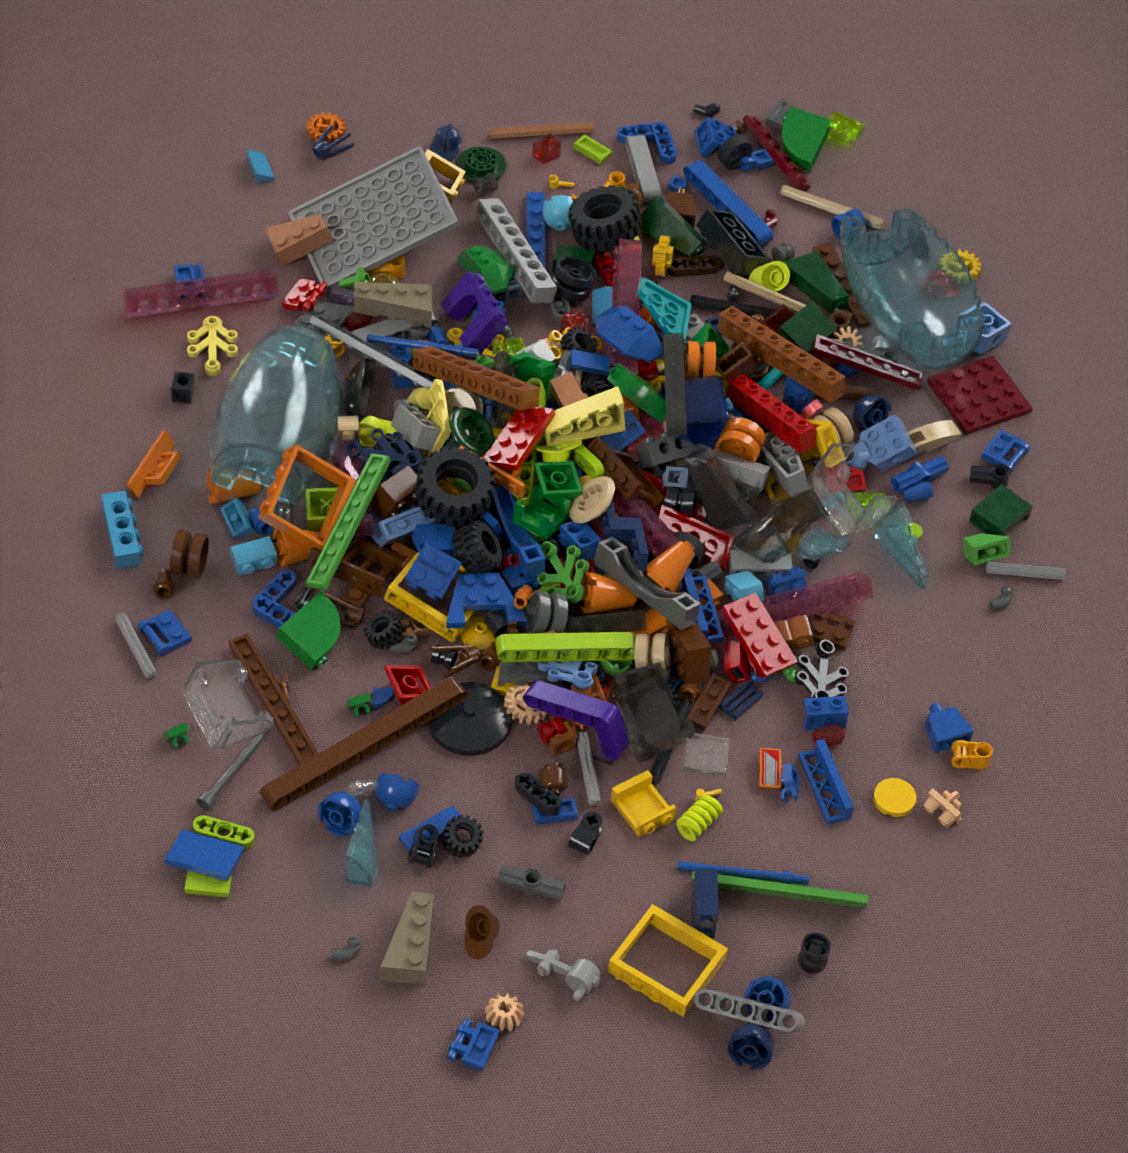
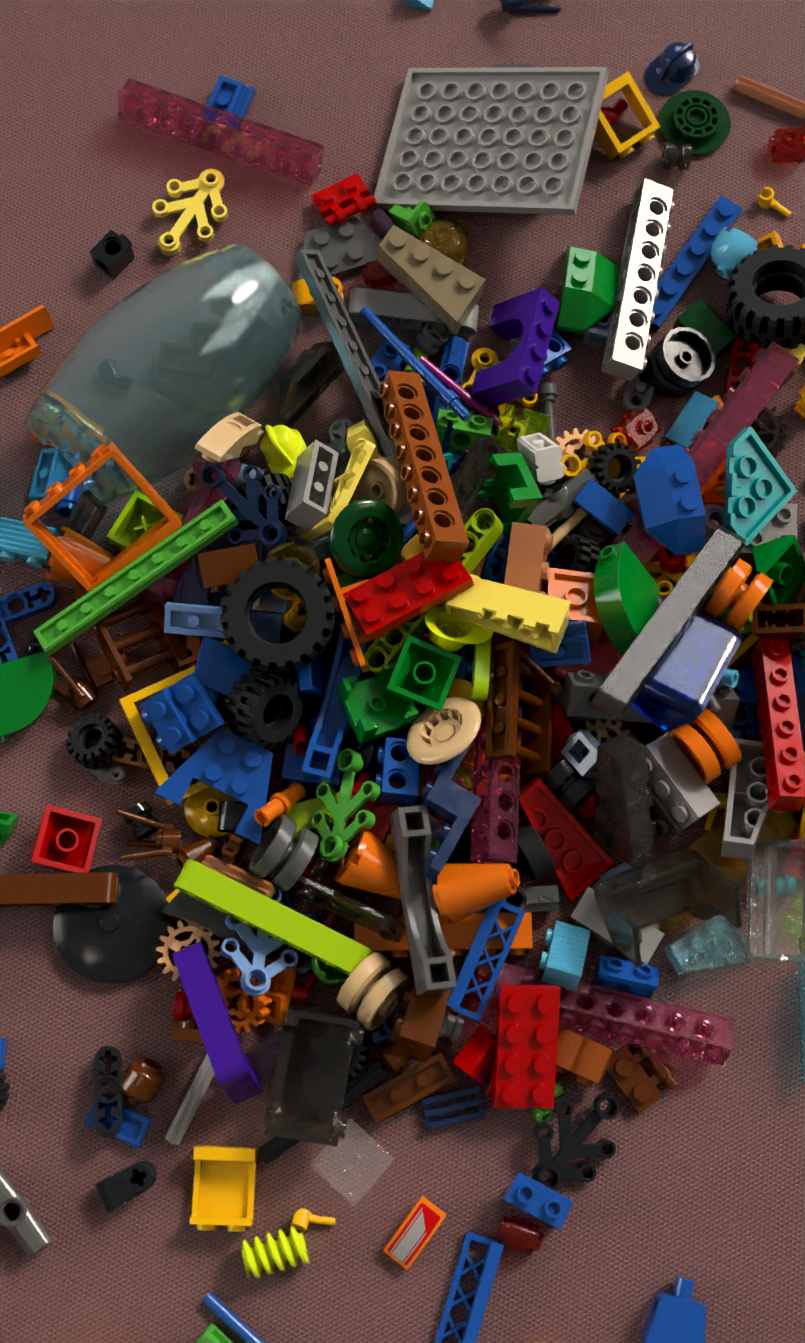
camera: 35 degrees right, 25 degrees up
(298, 237) = (386, 116): nougat wedge -> none
(381, 696) = (29, 829): blue tile -> none
(395, 266) = (470, 220): light orange piece -> none
(790, 779) = (424, 1271): blue plate -> none

